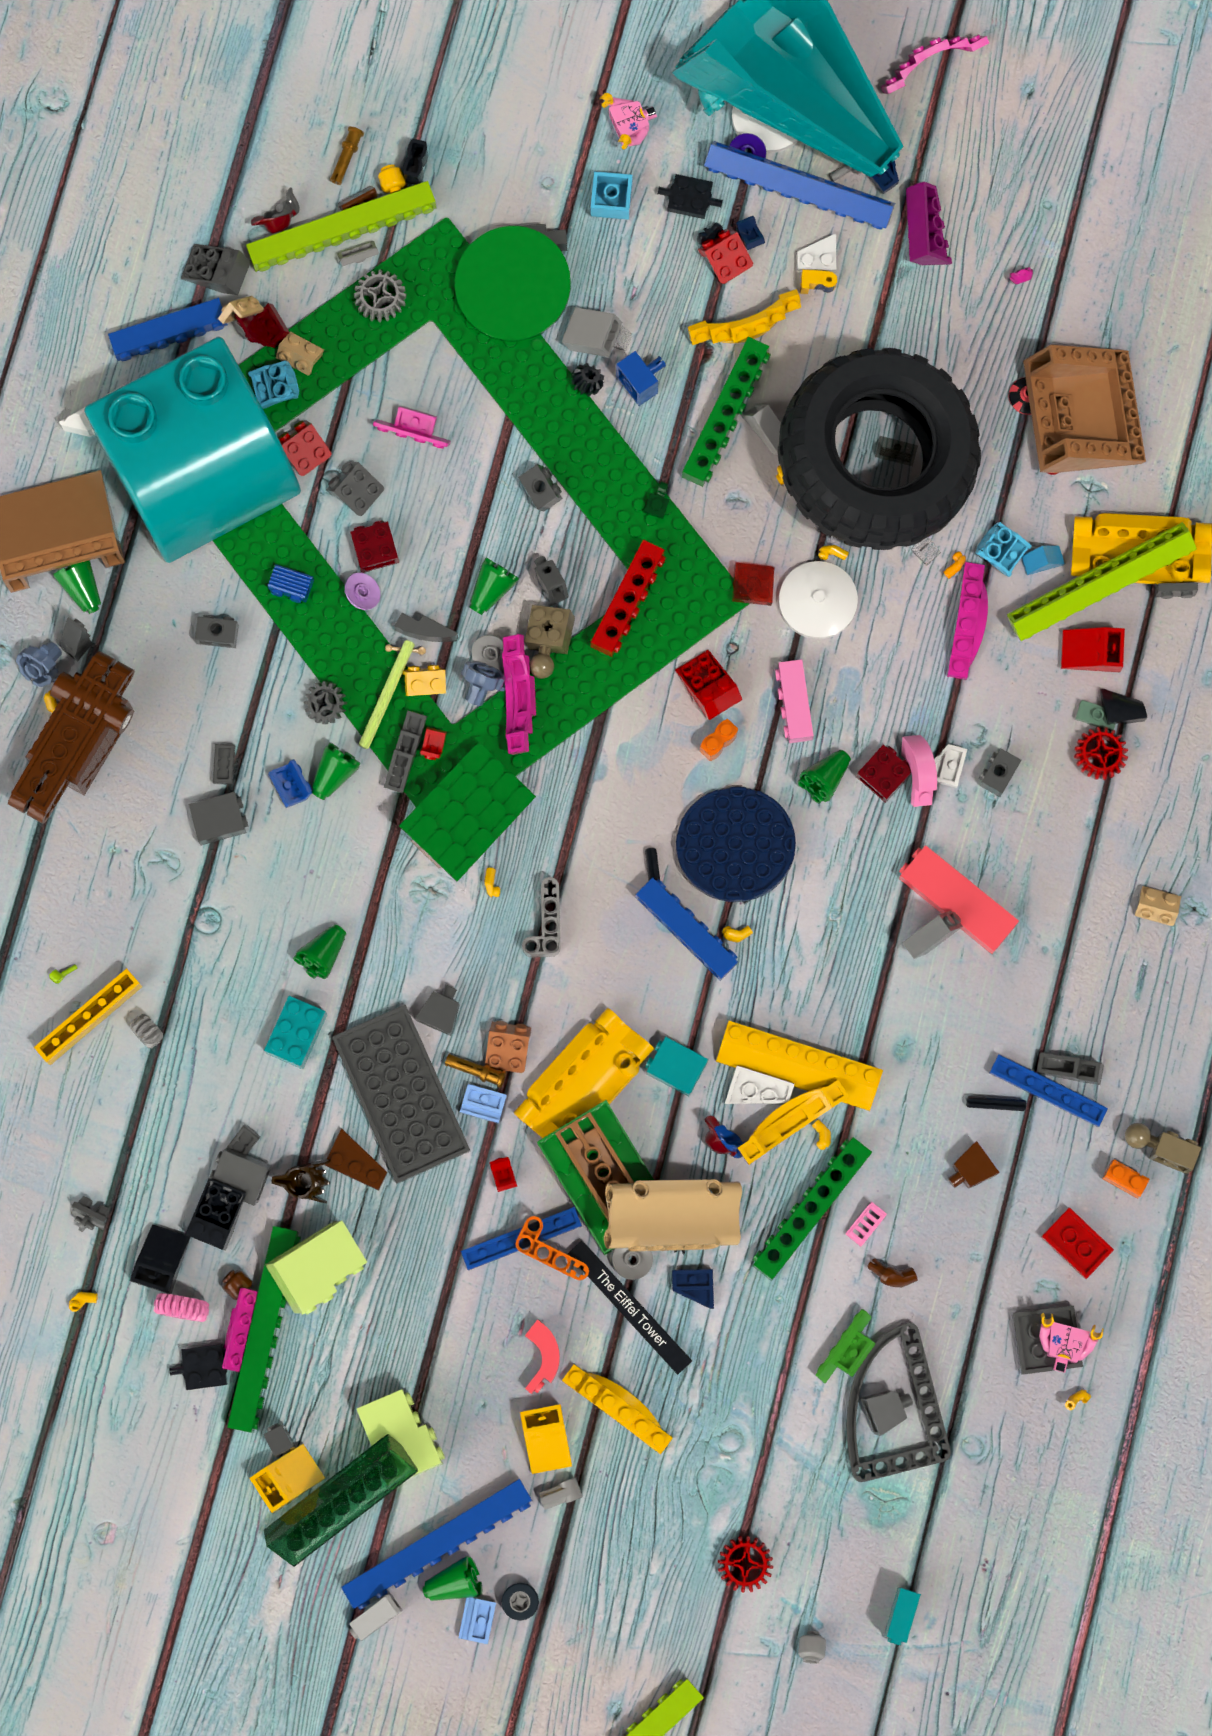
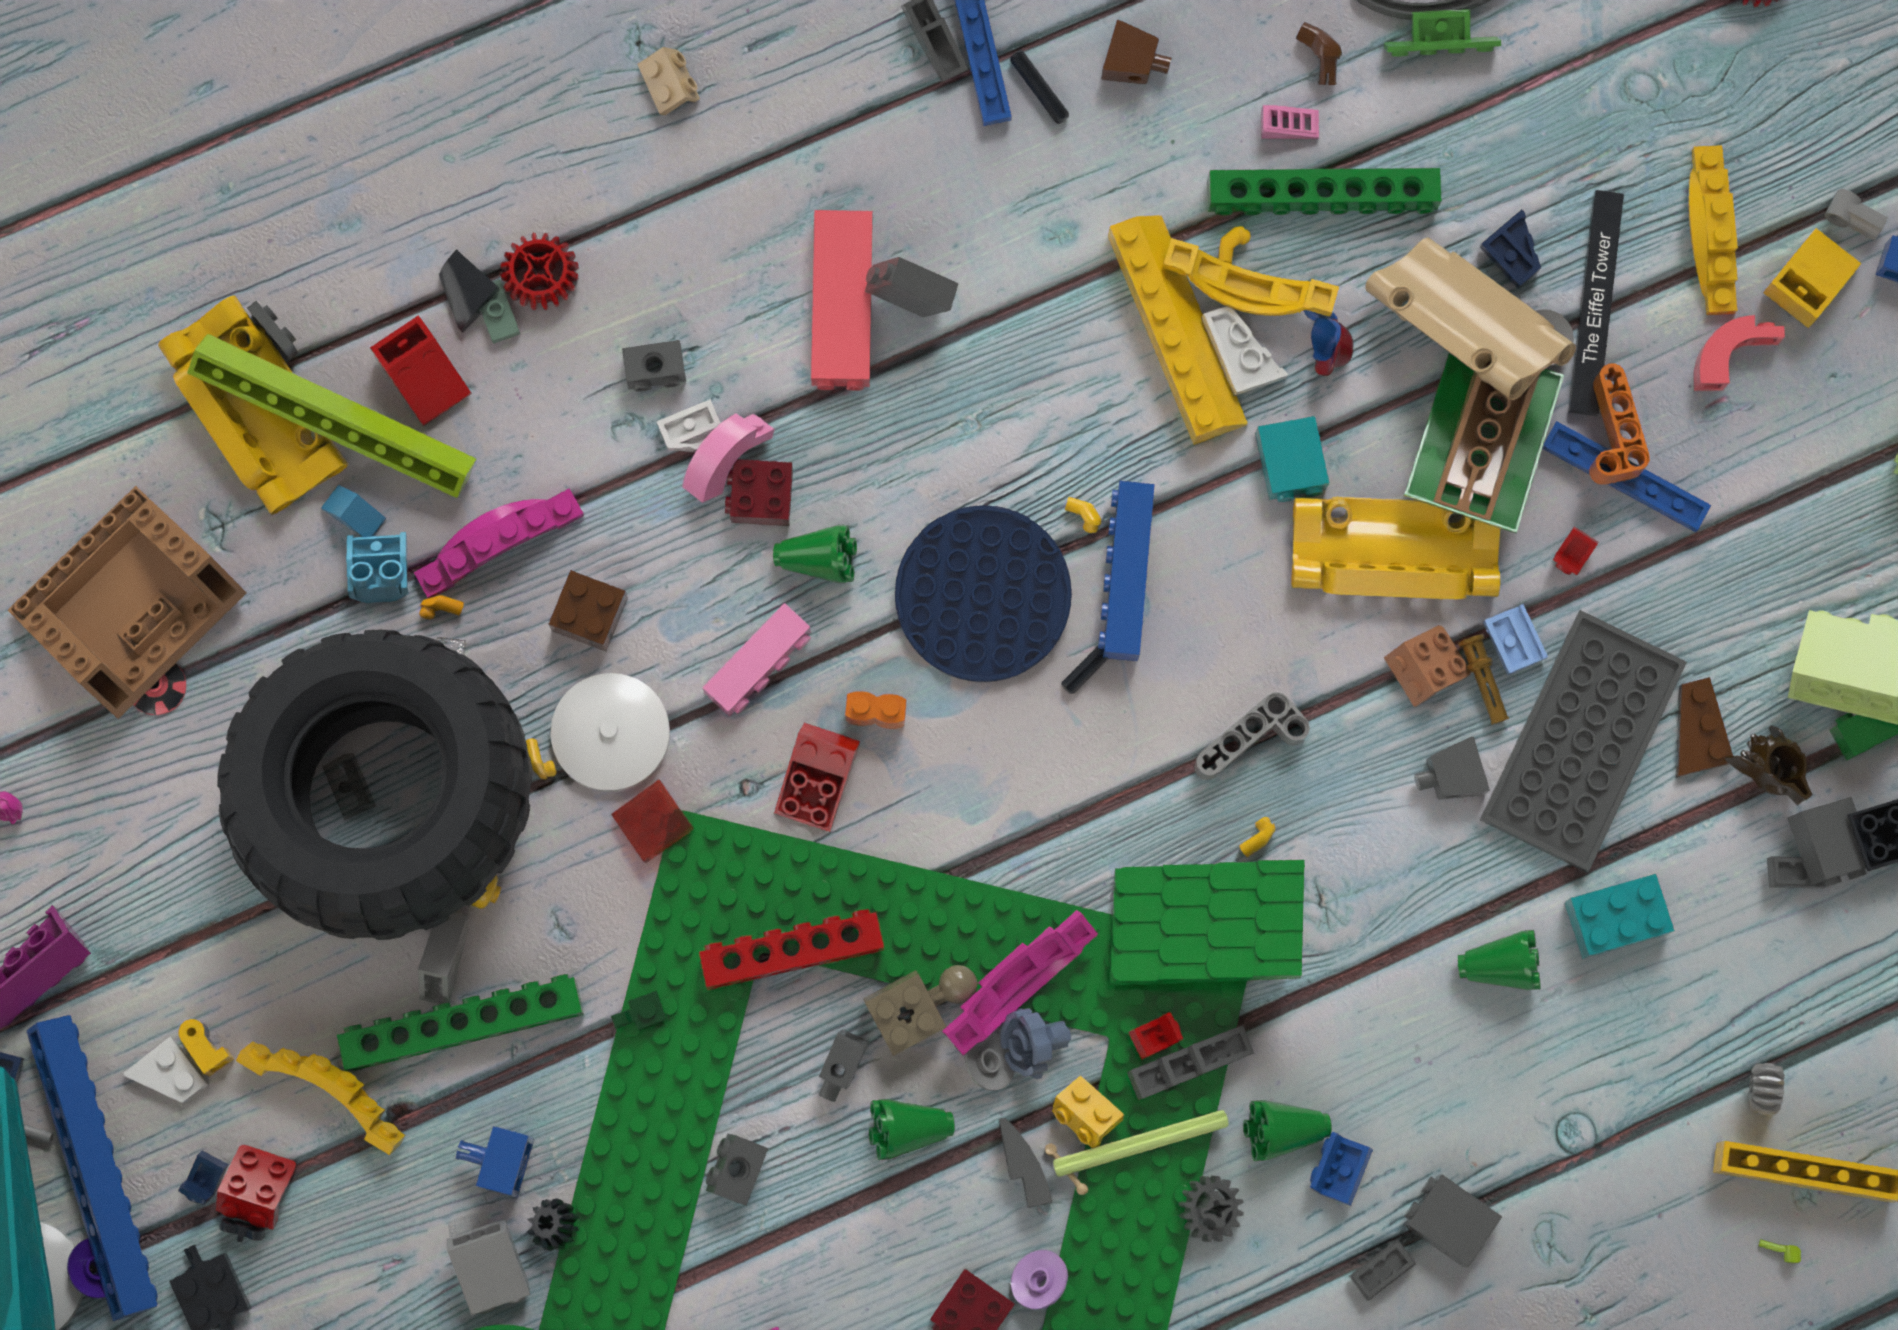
camera: 135 degrees left, 0 degrees up
(891, 635) = (588, 610): none -> reddish brown brick

